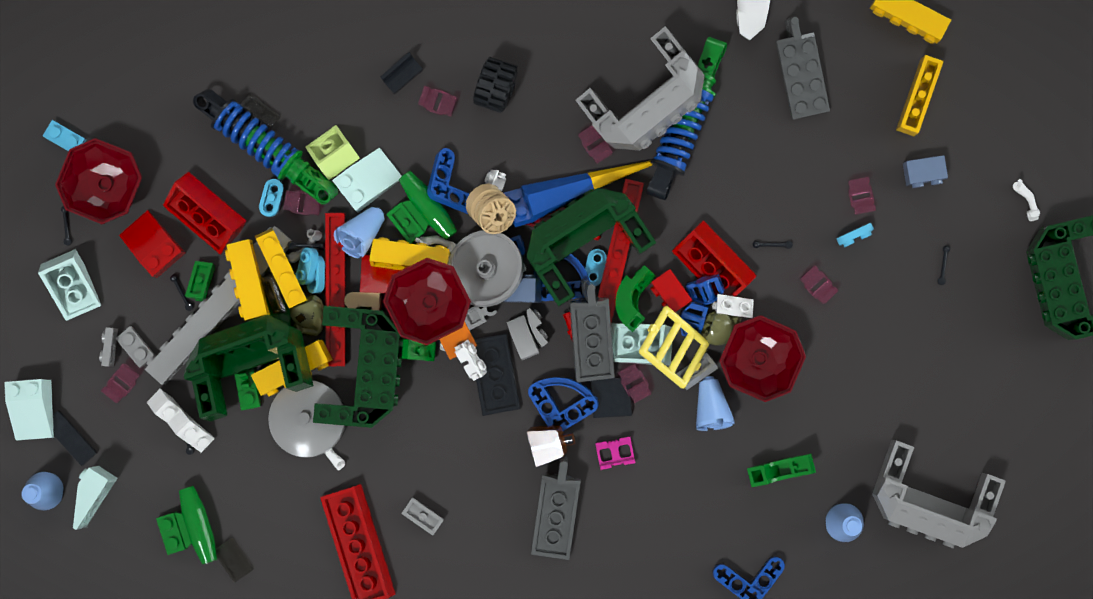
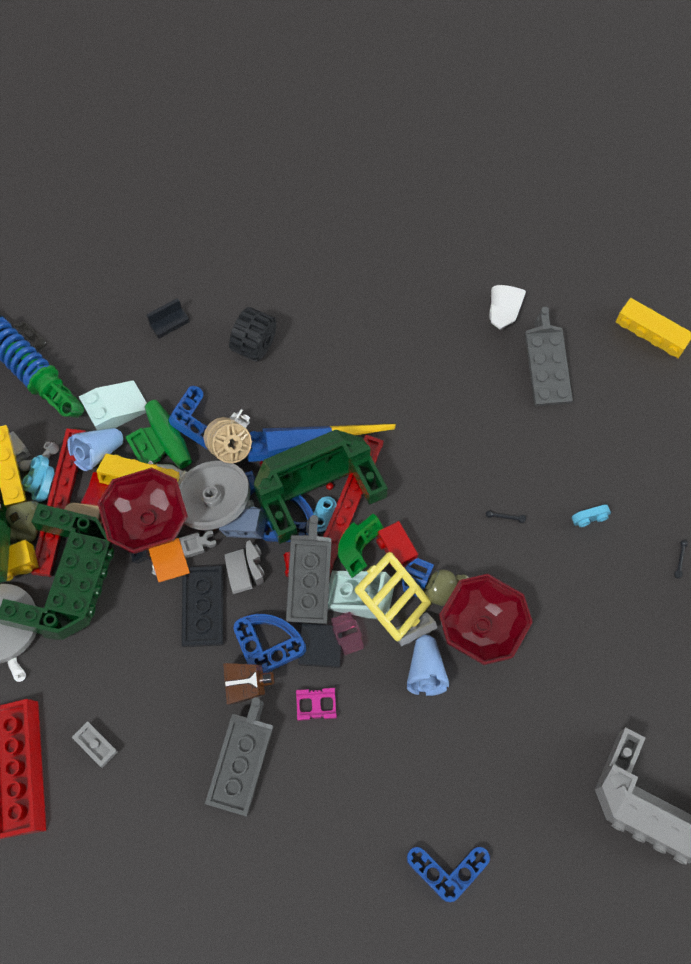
camera: 10 degrees right, 20 degrees down
(269, 197) = (17, 410): medium azure plate -> none
(291, 245) = (25, 450): black hinge -> none
(292, 202) = (55, 420): clear pink piece -> none
(332, 152) = (87, 376): yellowish green slope -> none
(418, 351) = (127, 565): green plate -> none
(429, 98) = (189, 344): clear pink piece -> none
(476, 366) = (177, 575): white hinge -> none
(599, 152) = (344, 410): clear pink piece -> none
(658, 110) = (401, 367): light grey wedge -> none
(676, 137) = (430, 390): piece -> none
(705, 288) = (433, 547): blue piece -> none
(709, 255) = (444, 524): red slope -> none
(734, 306) = (459, 565): white hinge -> none
(781, 469) = (495, 746): green arch -> none
(824, 292) = (545, 552): clear pink piece -> none
(844, 522) = (561, 819): light blue cone -> none
(857, 187) = (598, 472): clear pink piece -> none
(919, 95) = (661, 396): yellow brick -> none
(925, 171) = (664, 465): sand blue brick -> none

